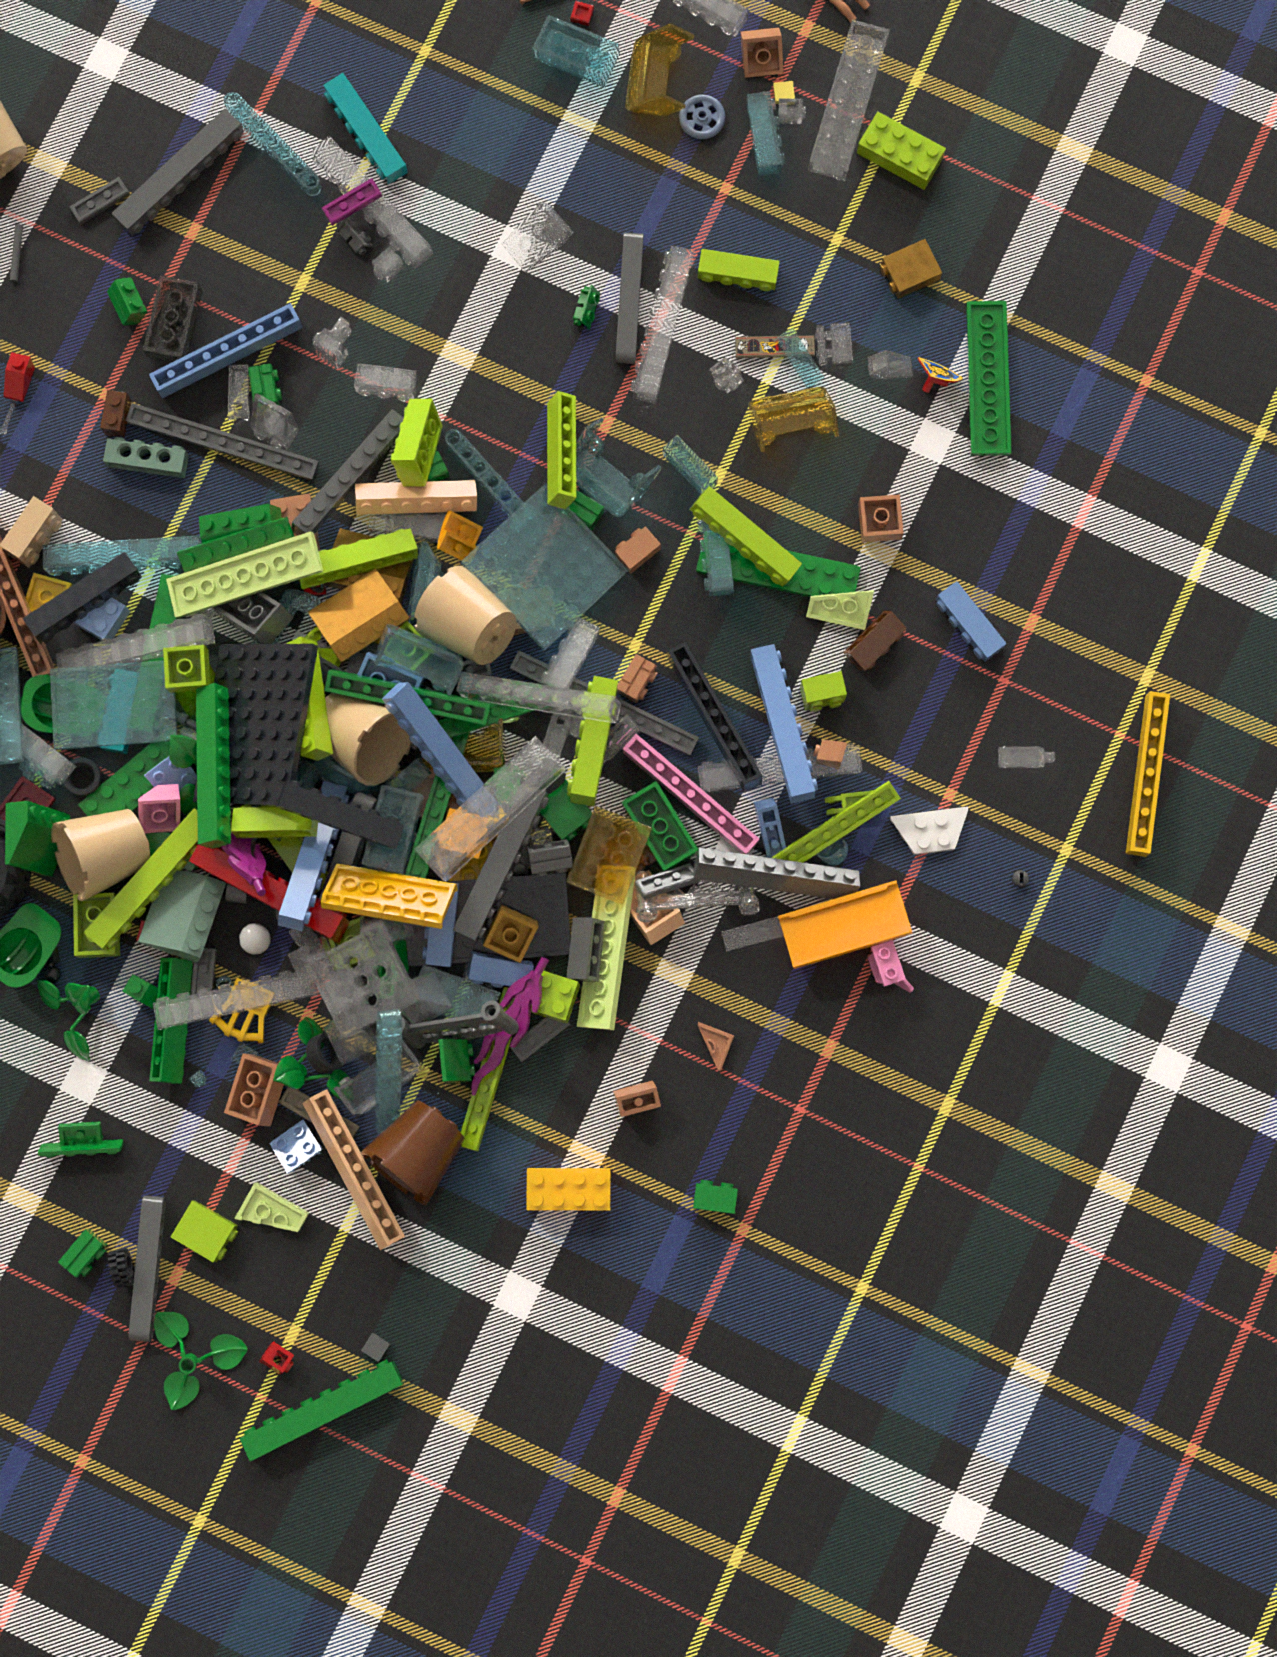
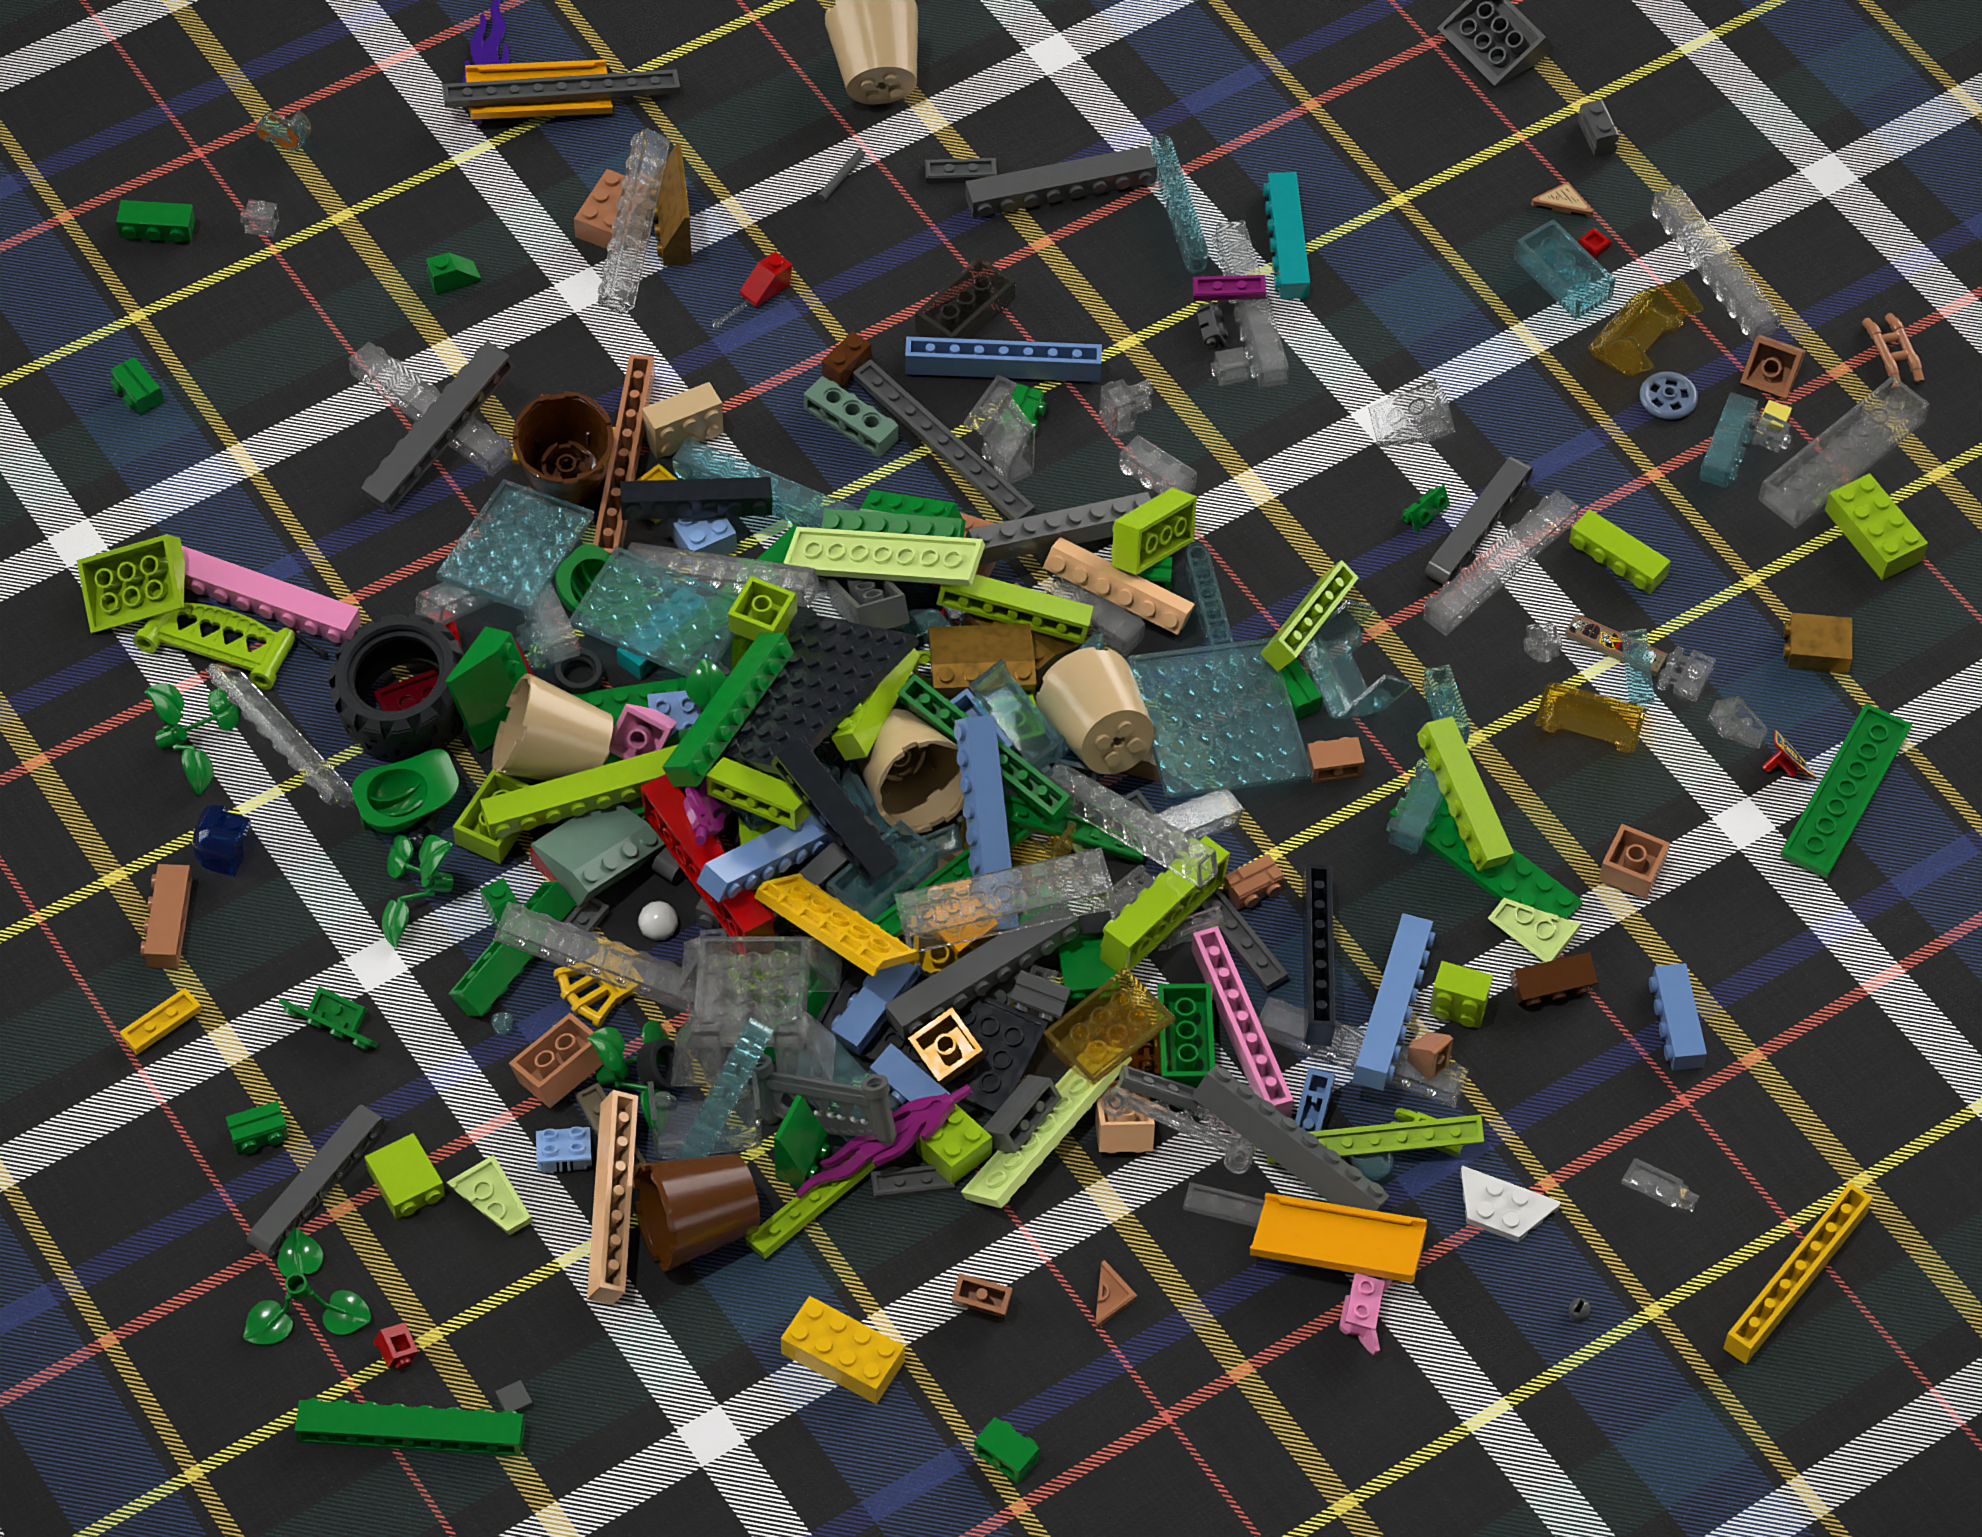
camera: 25 degrees right, 25 degrees down
(121, 1267) = (289, 1158): black tyre -> none
(127, 301) = (928, 267): green brick -> none
(458, 535) = (1140, 638): light orange slope -> none

